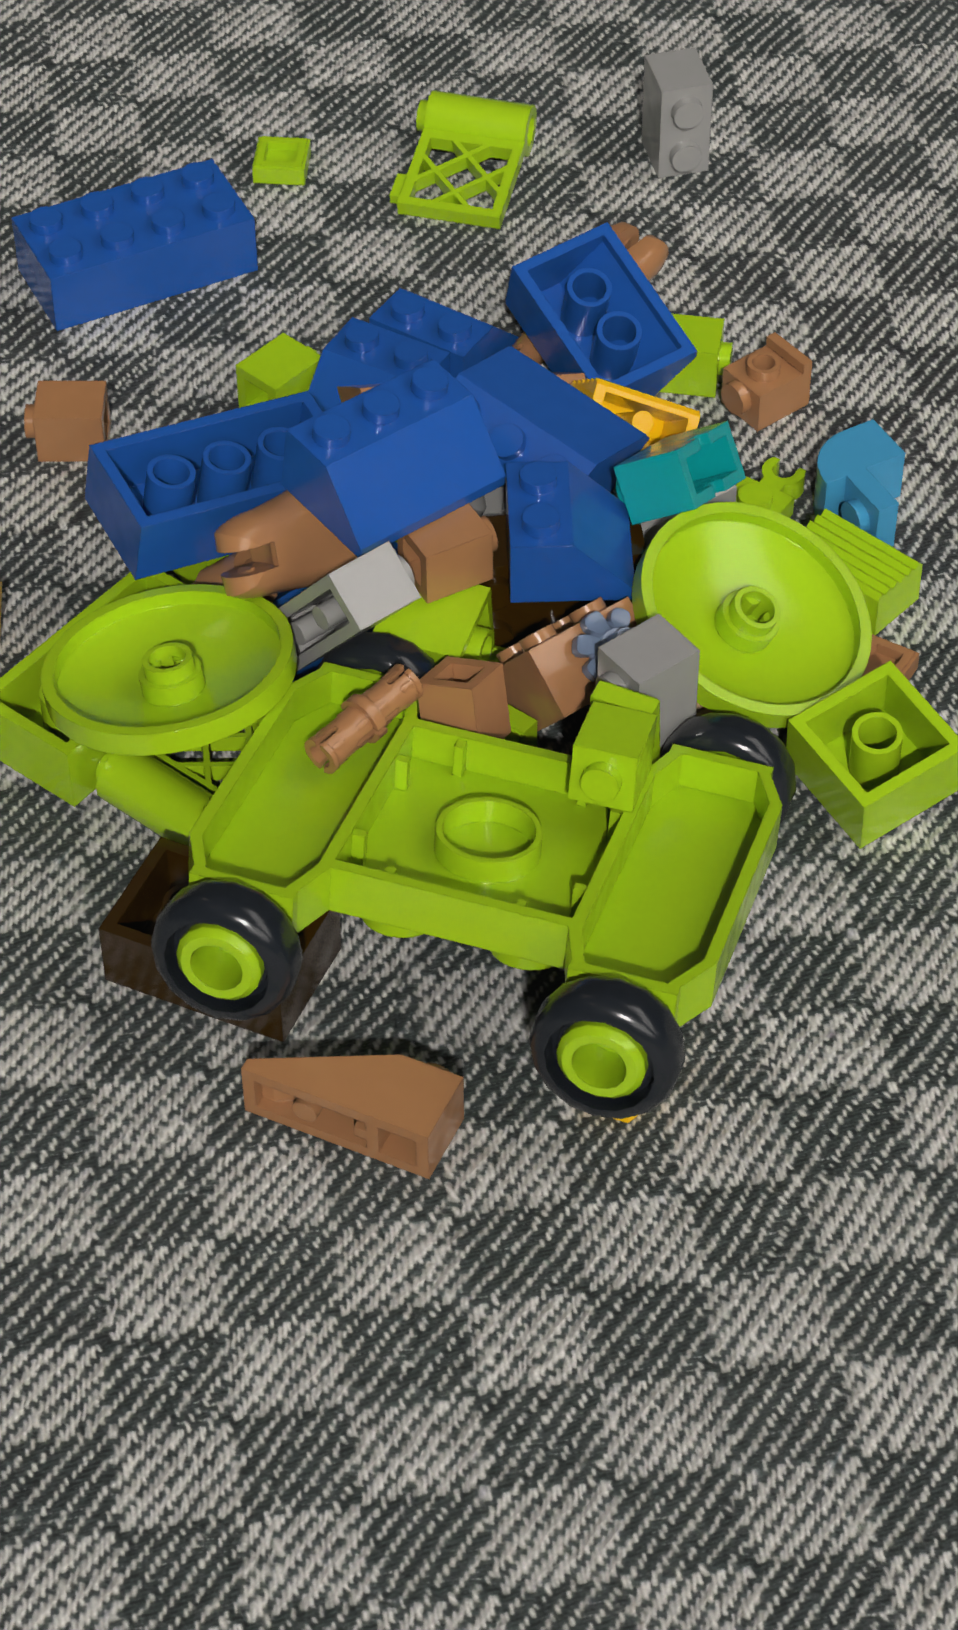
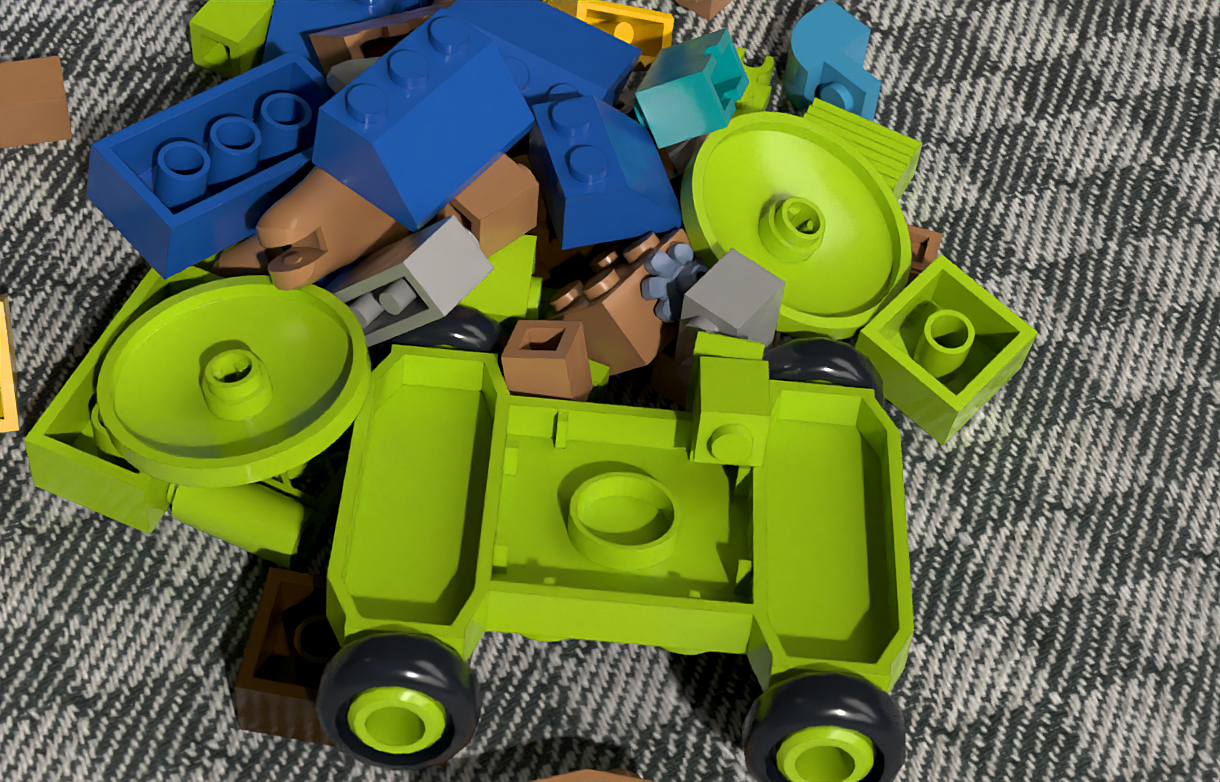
camera: 20 degrees left, 5 degrees up
(363, 718) = (459, 406): medium nougat pin -> none

